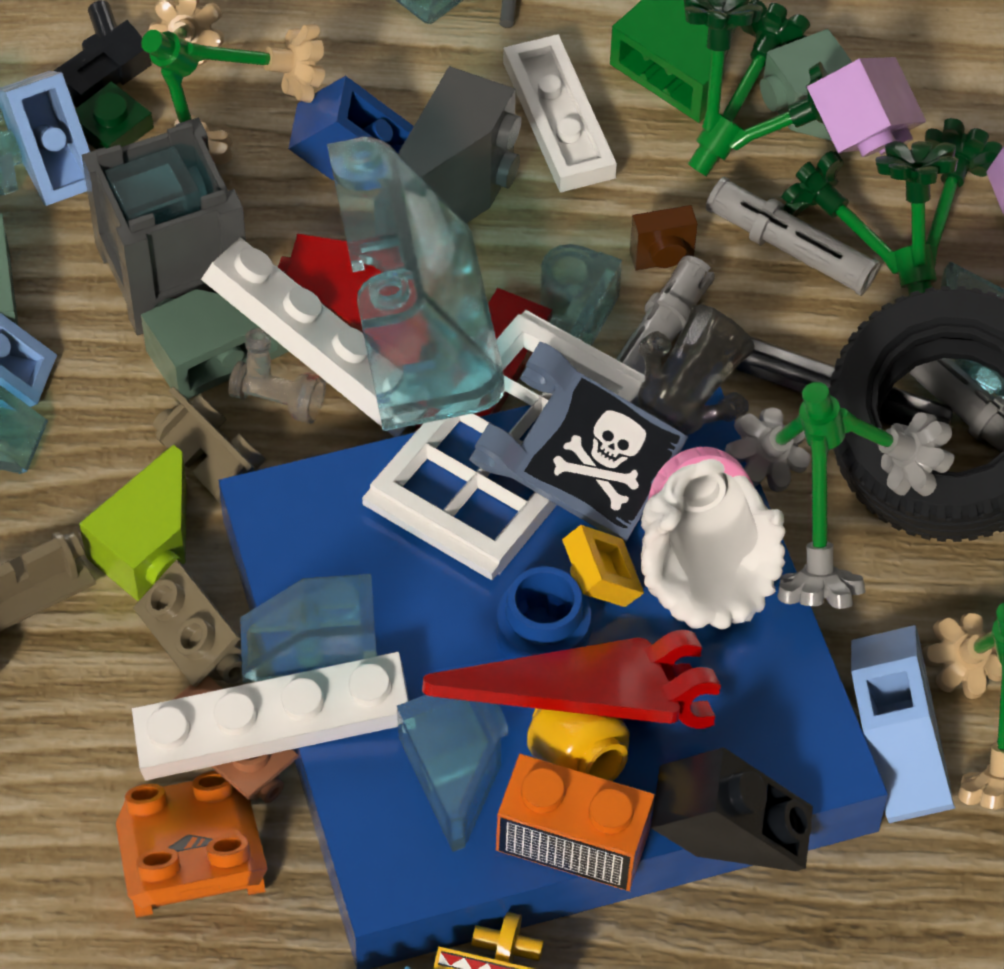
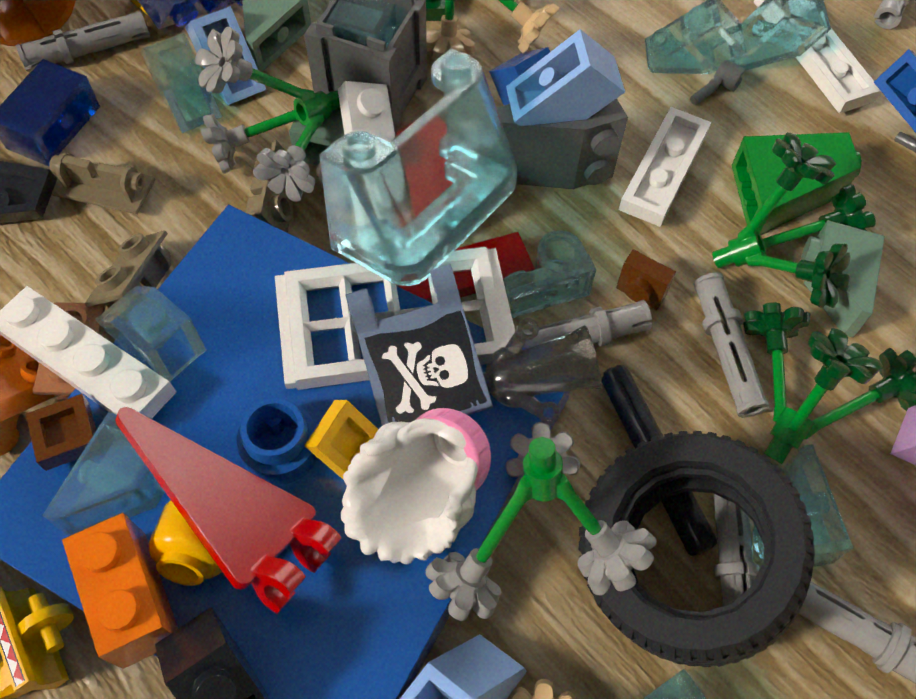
camera: 45 degrees right, 5 degrees up
(123, 331) = (284, 167): none -> light grey plant
(141, 526) = (186, 201): lime slope -> none
(355, 773) = (61, 431): none -> reddish brown plate
(441, 101) = (566, 84): none -> light blue slope
(867, 105) = (850, 294): lavender brick -> none

